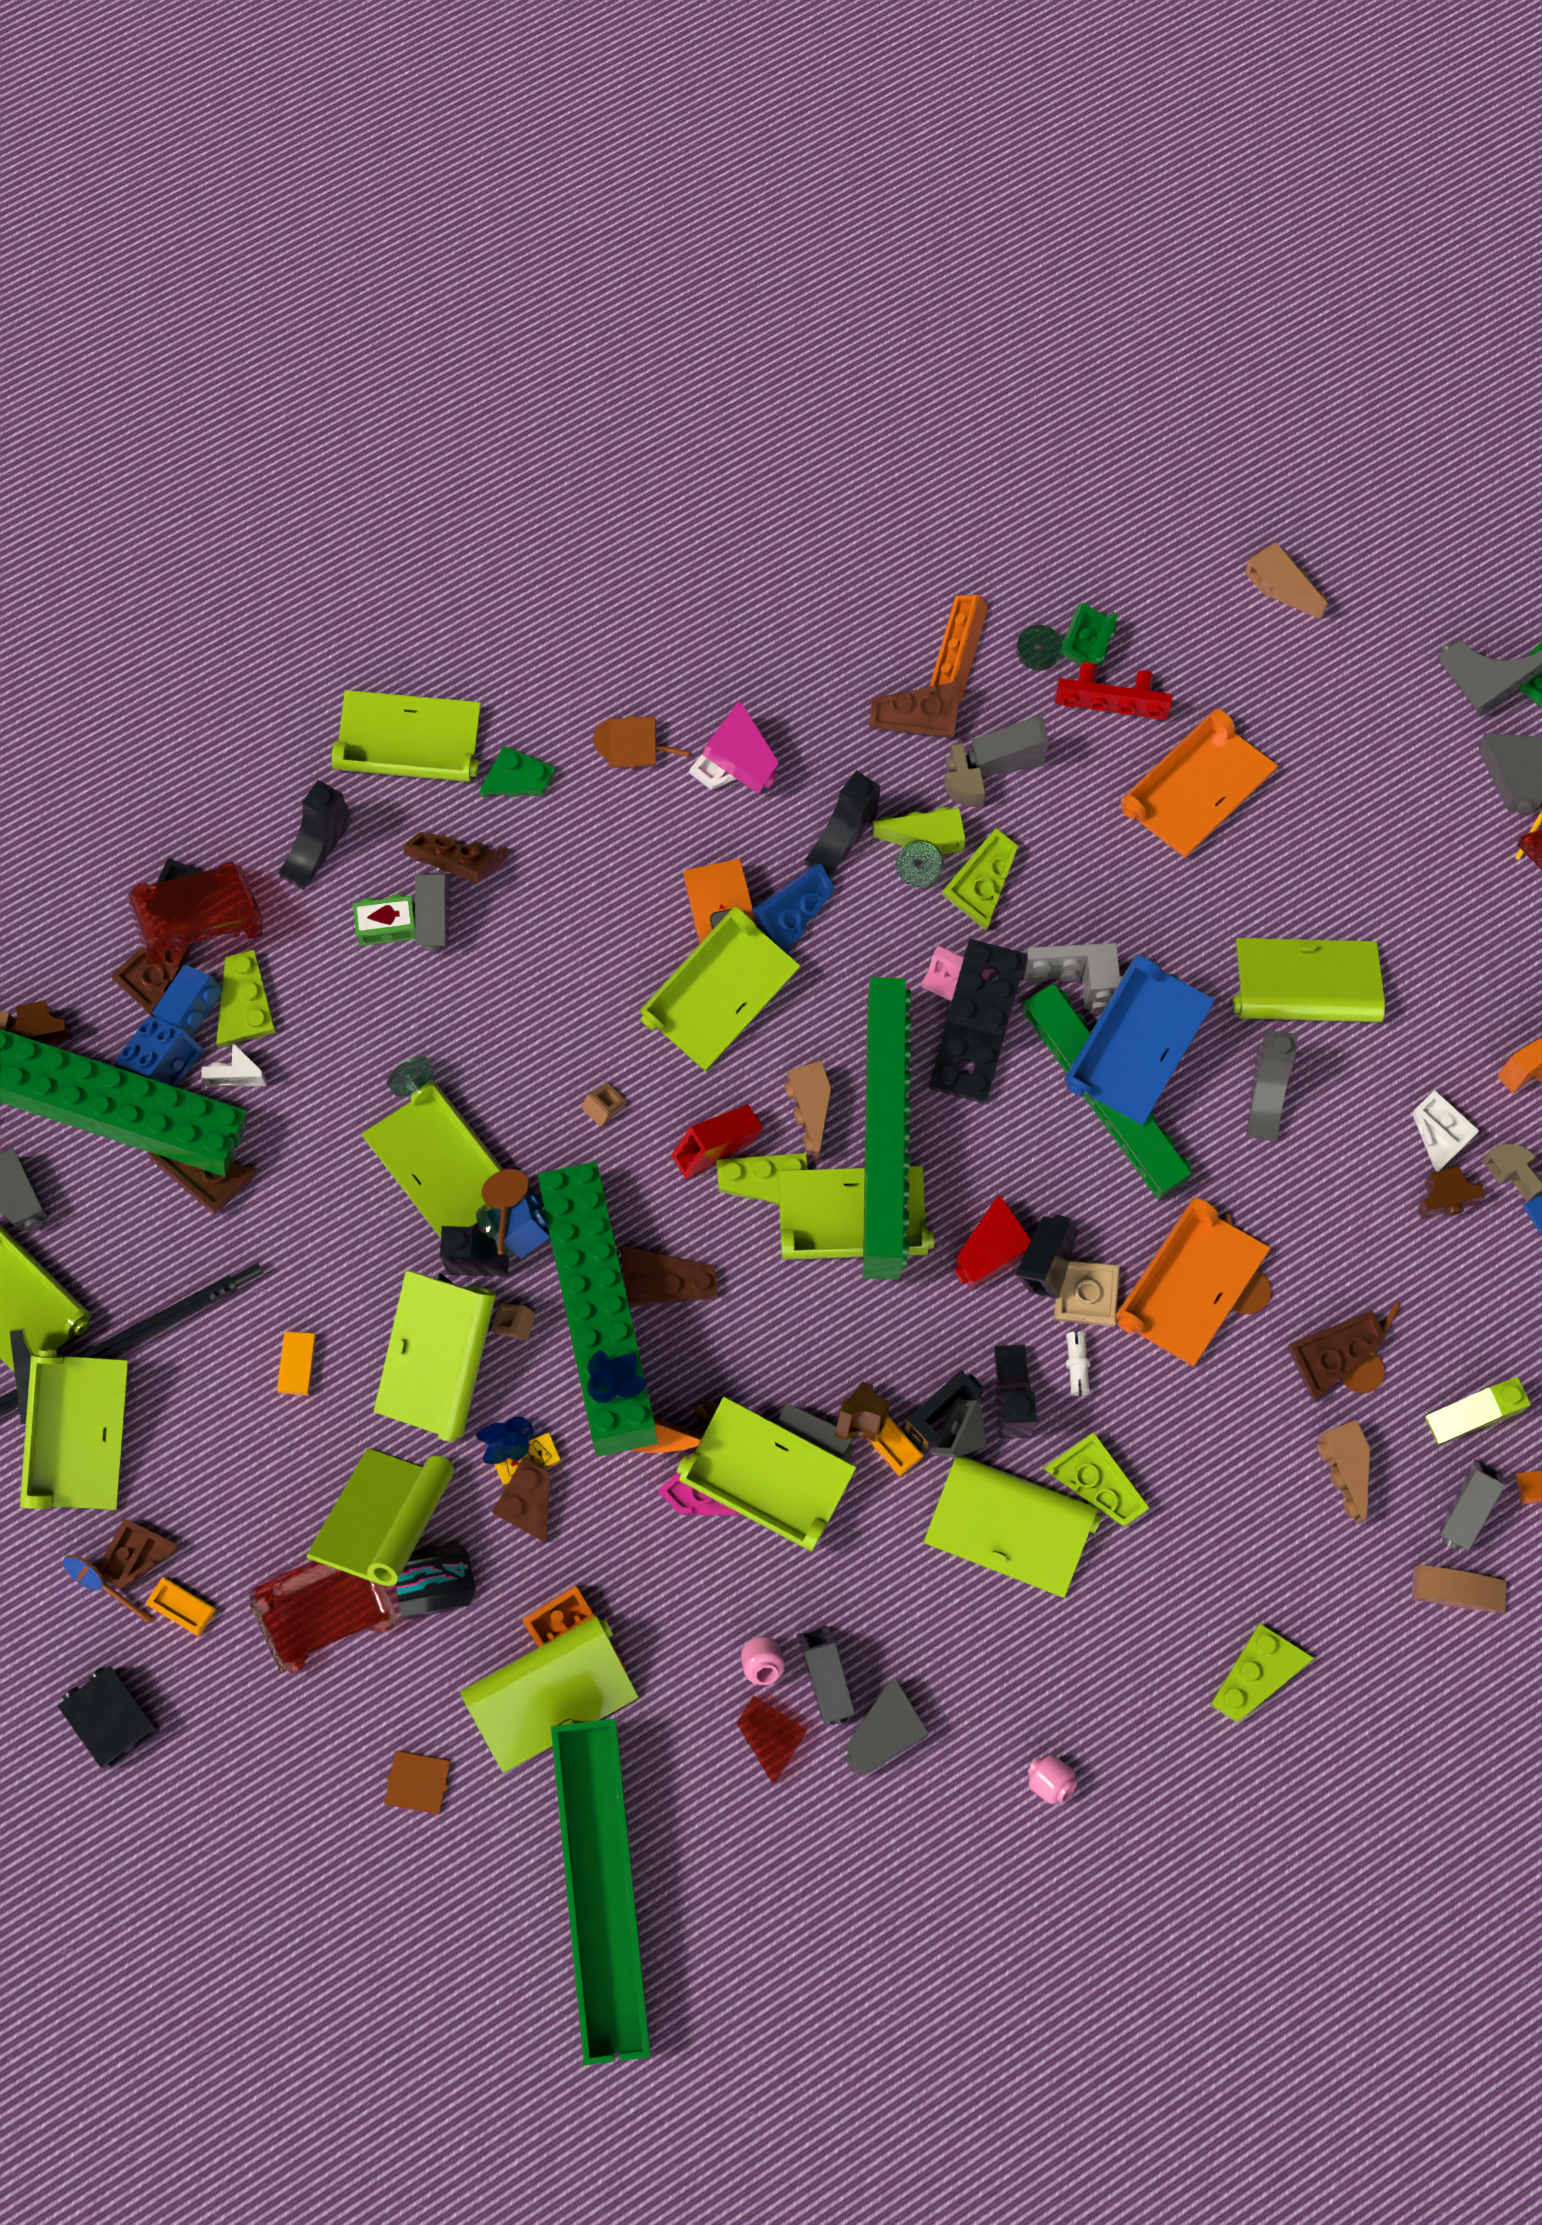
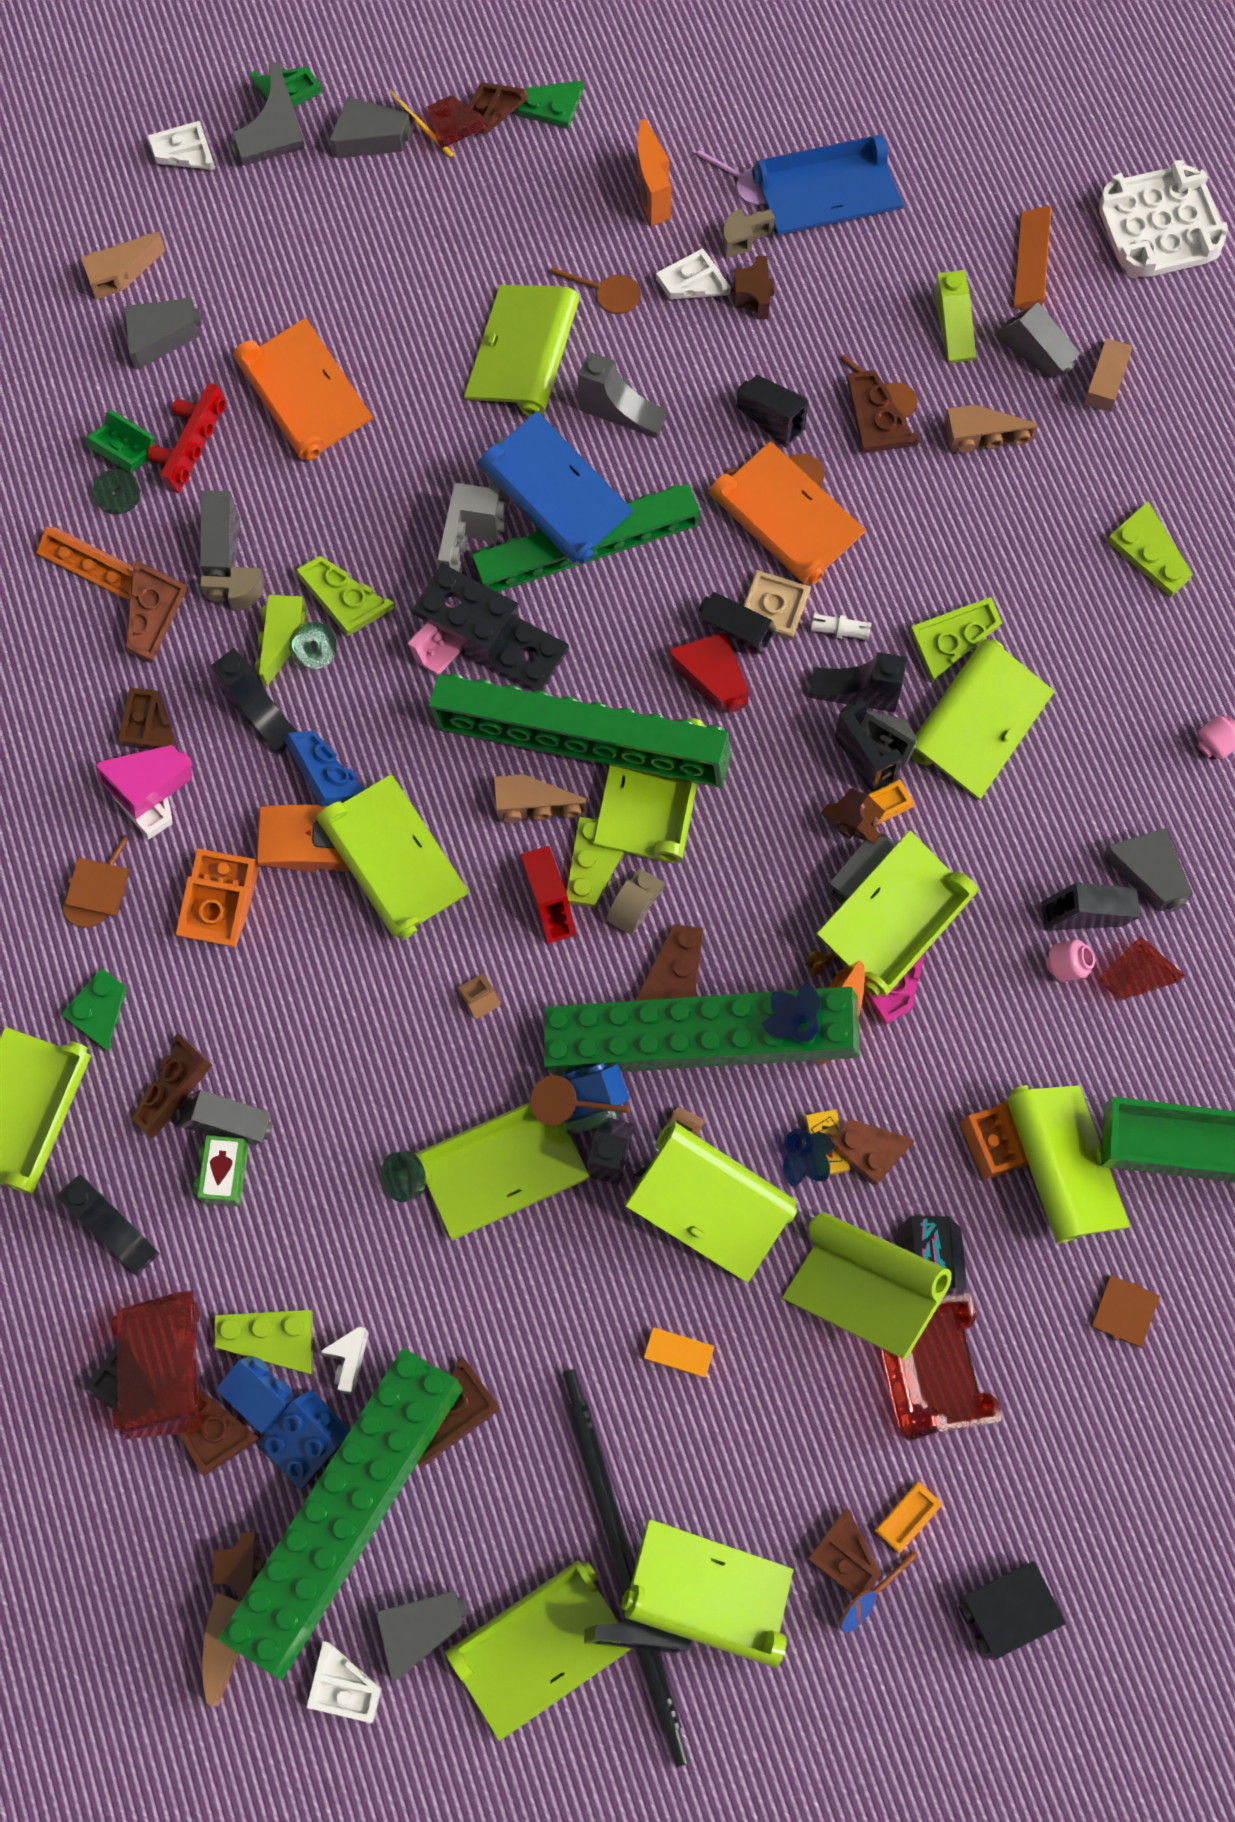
camera: 75 degrees left, 0 degrees up
(645, 847) = (217, 897): none -> orange slope
(730, 1223) = (634, 901): none -> dark tan brick
(805, 738) = (145, 721): none -> reddish brown wing
(1223, 635) = (160, 328): none -> dark grey slope
(1306, 1240) = (773, 408): none -> black slope
(1403, 1058) = (614, 294): none -> dark orange piece
(1439, 601) = (182, 147): none -> white wing

